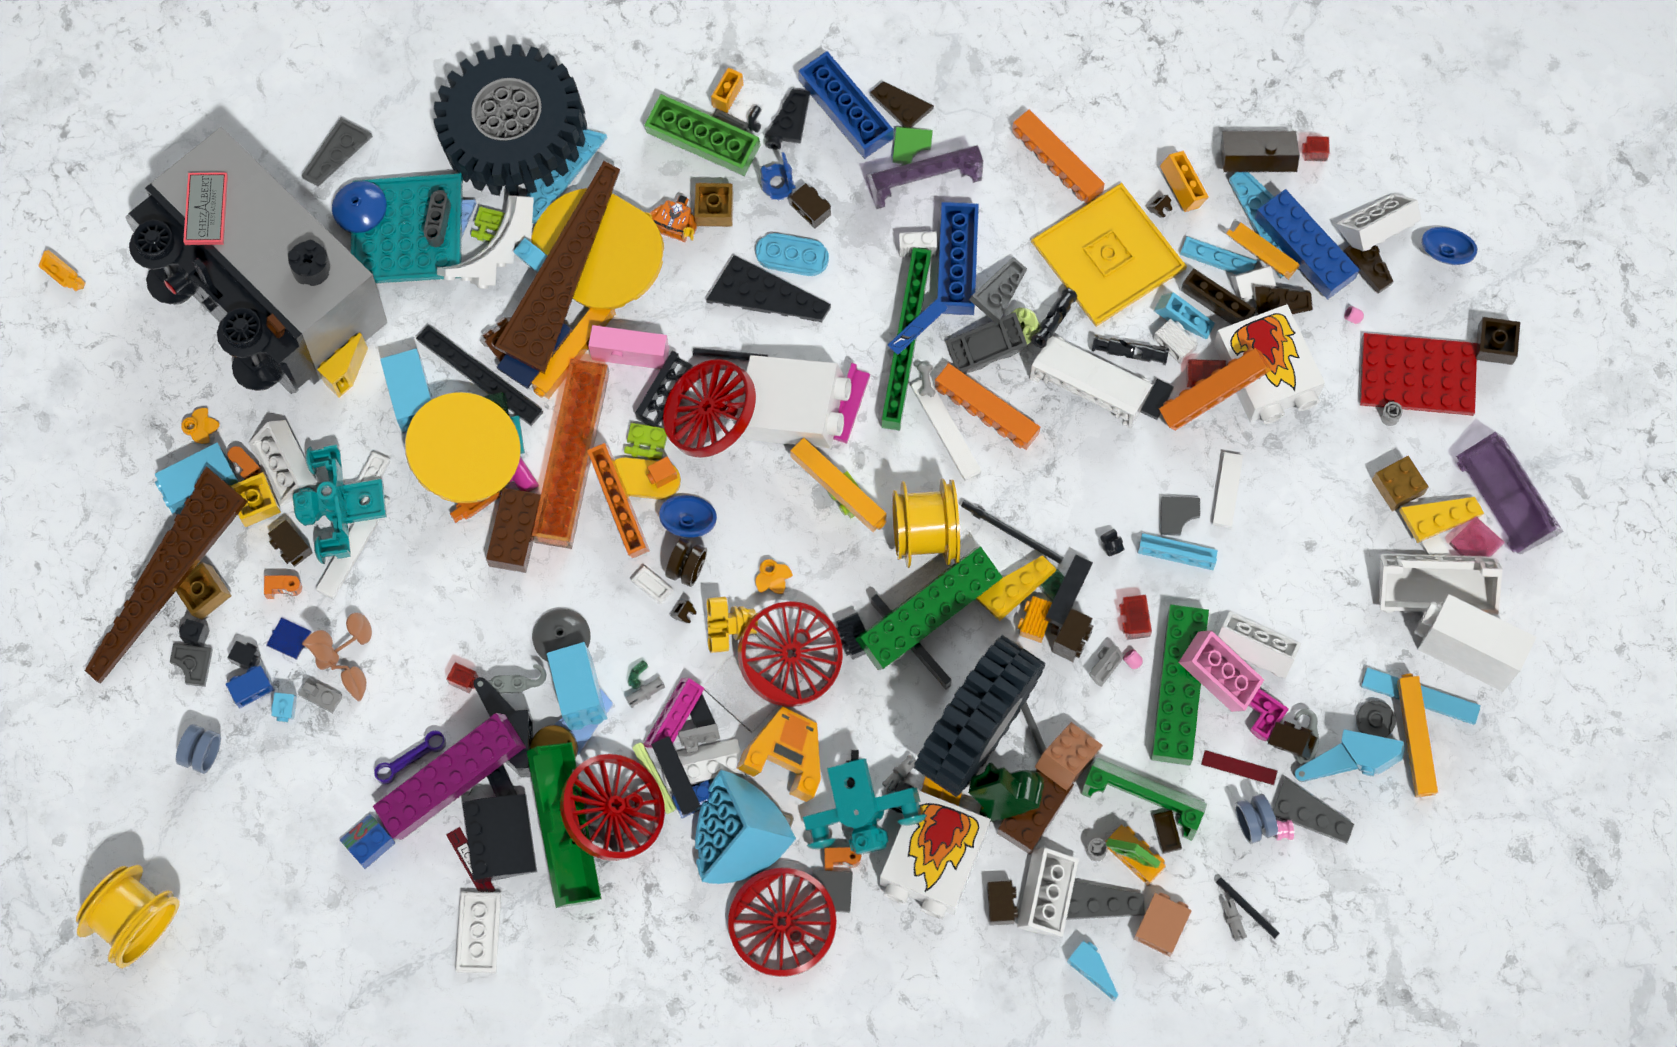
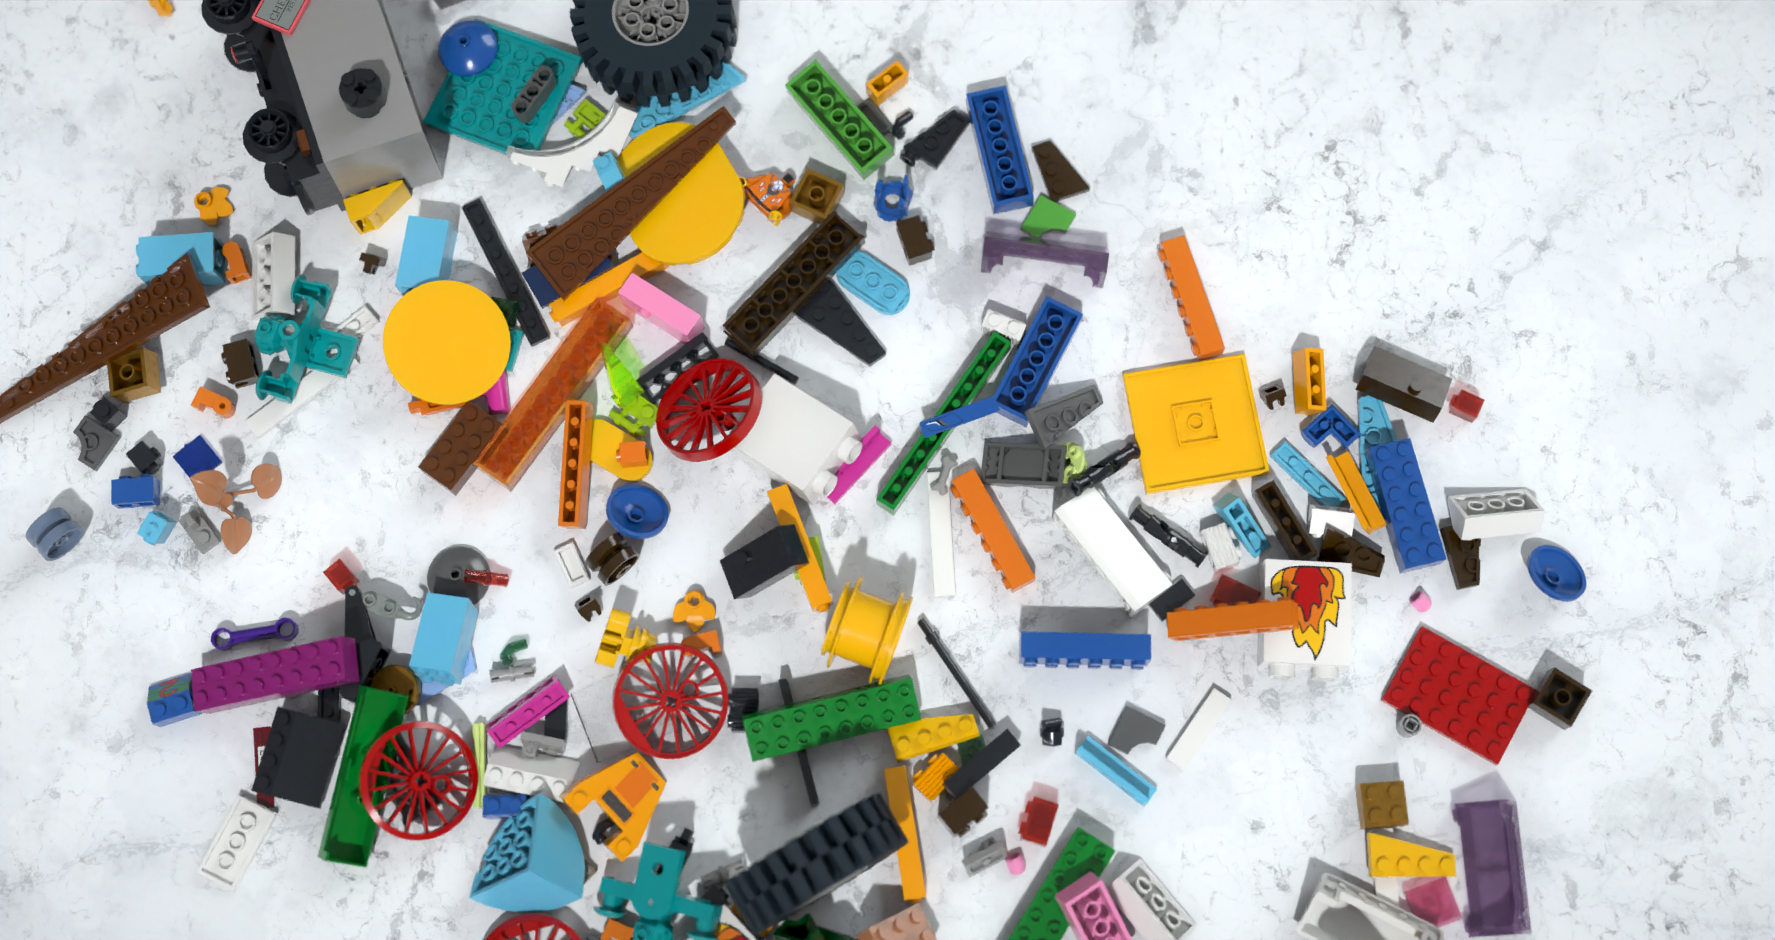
camera: 25 degrees right, 5 degrees up
(260, 500) = (228, 304): yellow brick -> none
(362, 414) = (372, 262): none -> dark brown tile
(586, 624) = (486, 578): none -> clear red pin
(623, 416) = (620, 380): none -> clear neon green slope
(676, 776) = (495, 777): black tile -> none
(729, 281) = (793, 284): none -> dark brown tile
(781, 789) = (601, 827): none -> black arm
(796, 594) = (704, 642): none -> orange leg
(815, 507) = (764, 561): none -> black brick
(1033, 728) = (880, 887): dark grey bar -> none
(1045, 690) = (908, 855): none -> light orange brick
(1107, 465) = (1084, 649): none -> blue brick
(1216, 207) = (1331, 423): none -> blue brick

